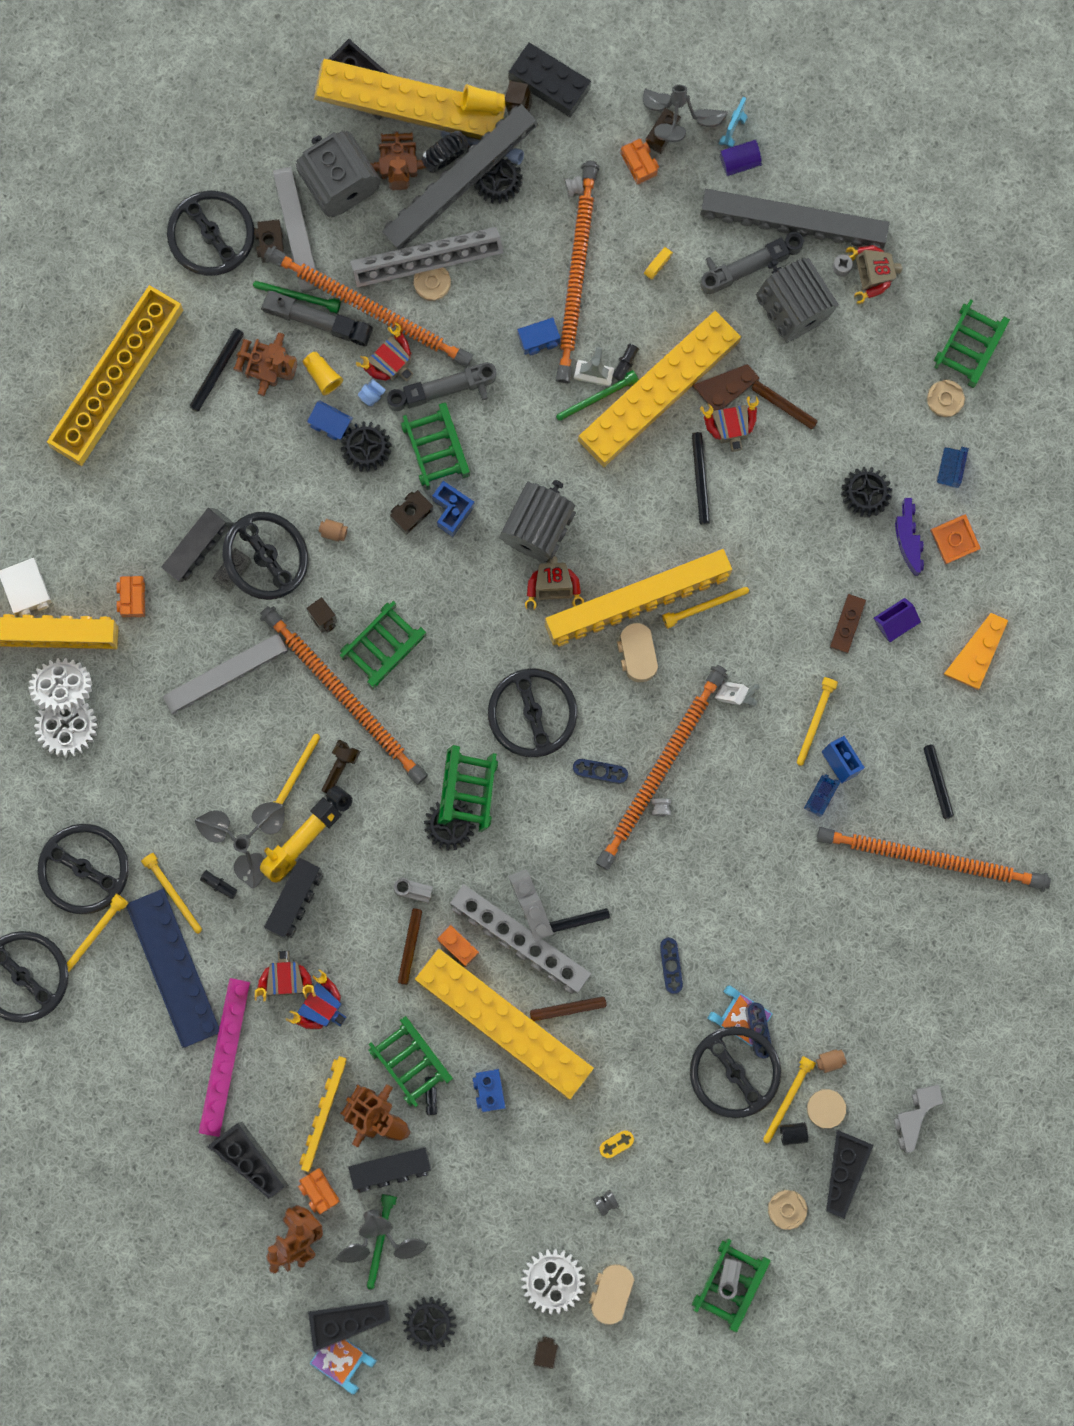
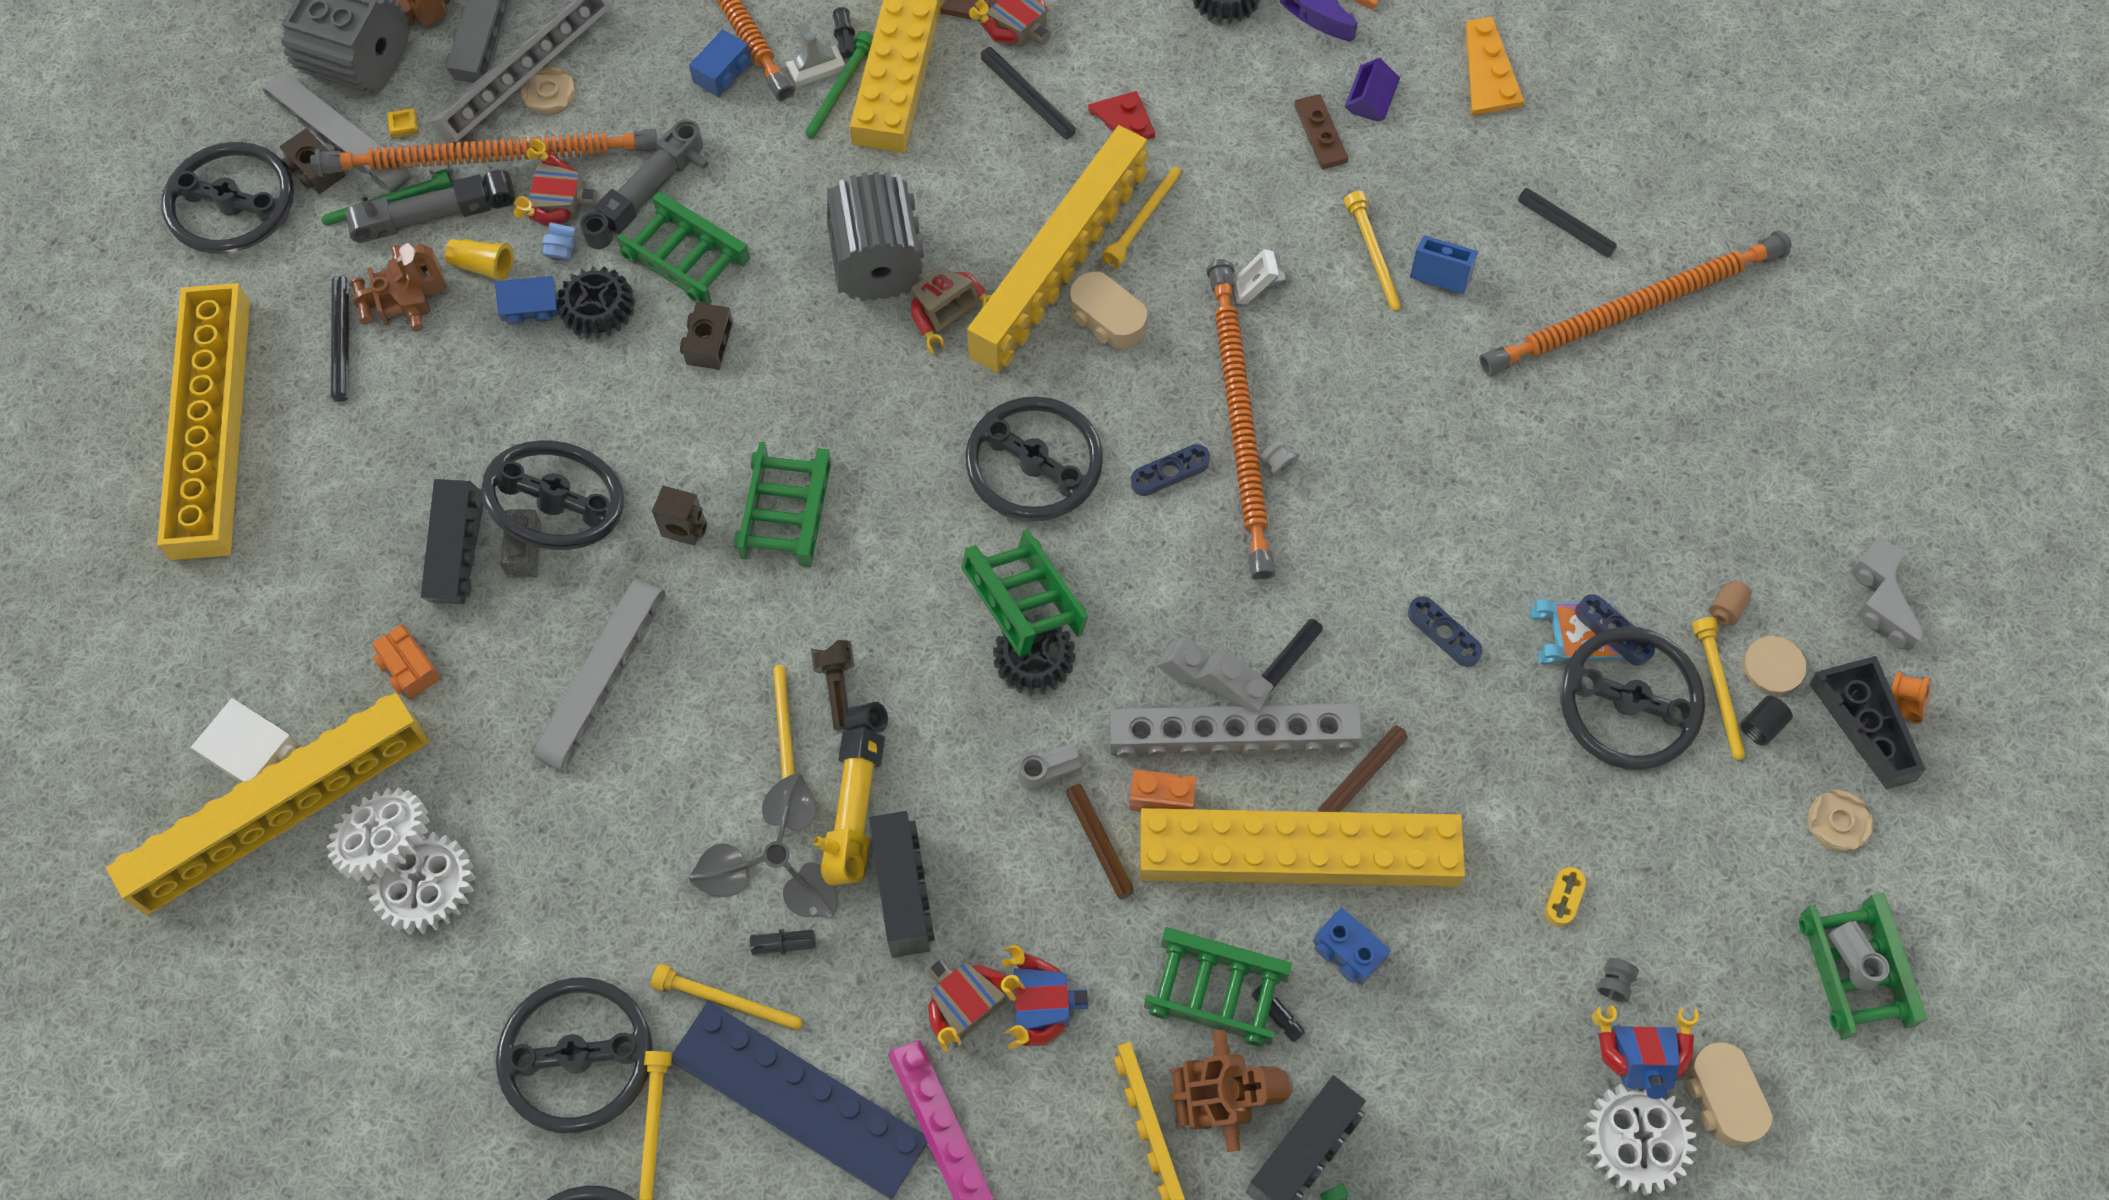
camera: 30 degrees left, 15 degrees down
(275, 622) = (681, 578): orange hose -> none
(333, 530) = (621, 417): medium nougat brick -> none
(337, 247) = (402, 123): none -> yellow tile
(456, 507) = (756, 292): blue brick -> none
(586, 1247) = (1646, 1055): none -> torso
(744, 534) = (1125, 111): none -> red wing
(822, 795) = (1453, 320): clear blue hinge -> none
(876, 1176) = (1911, 696): none -> orange piece

